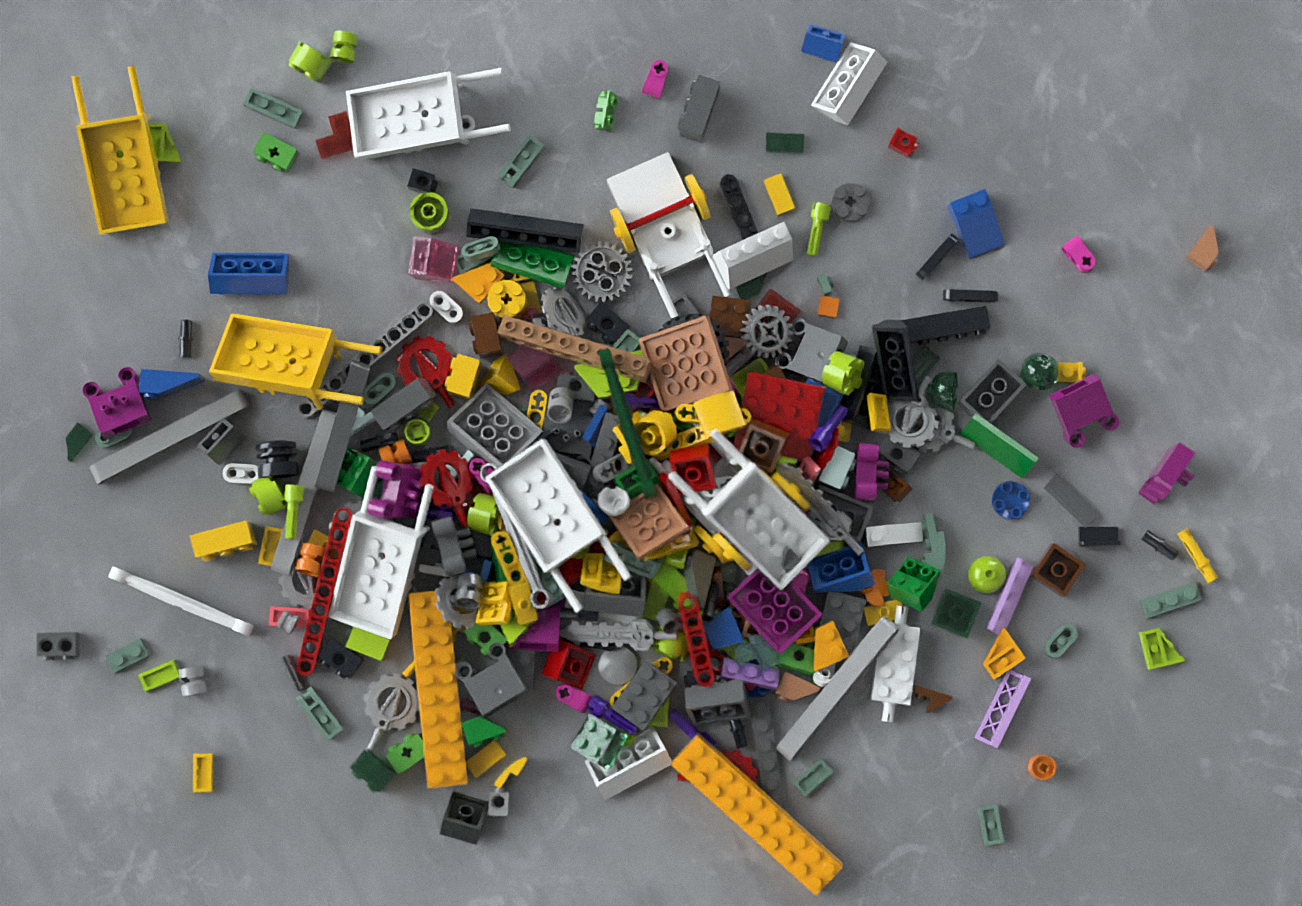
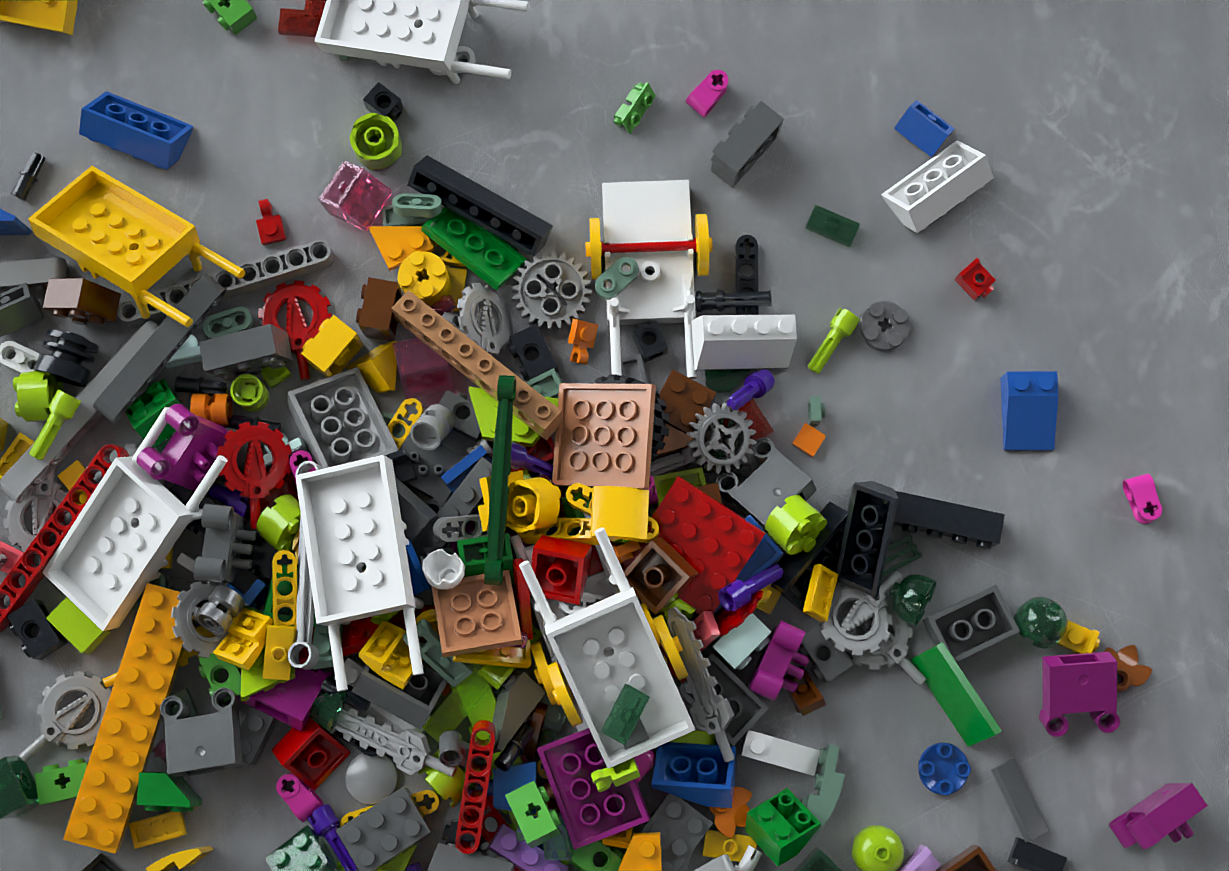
camera: 20 degrees right, 5 degrees down
(271, 415) = (81, 301): none -> reddish brown brick
(310, 559) = (50, 494): orange wheel -> none
(378, 305) = (270, 227): none -> red plate
(446, 307) = (349, 260): white plate -> none
(521, 160) = (510, 125): sand green plate -> none
(571, 629) = (327, 709): none -> clear green tile
(638, 296) = (582, 336): none -> orange plate
(647, 246) = (618, 278): none -> sand green plate
(693, 286) = (653, 351): none -> black brick
(726, 233) = (764, 298): none -> black pin
(733, 438) = (625, 551): none -> orange plate
(748, 650) = (522, 803): none -> bright green brick
(775, 284) = (754, 386): none -> dark purple piece
(778, 548) = (625, 714): none -> clear green plate
(779, 194) = (801, 283): yellow tile -> none
(790, 591) = (617, 774): none -> lime plate
(937, 256) = (965, 431): black beam -> none
(970, 295) = (988, 495): black beam -> none
(1112, 379) = (1128, 667): none -> dark orange plate

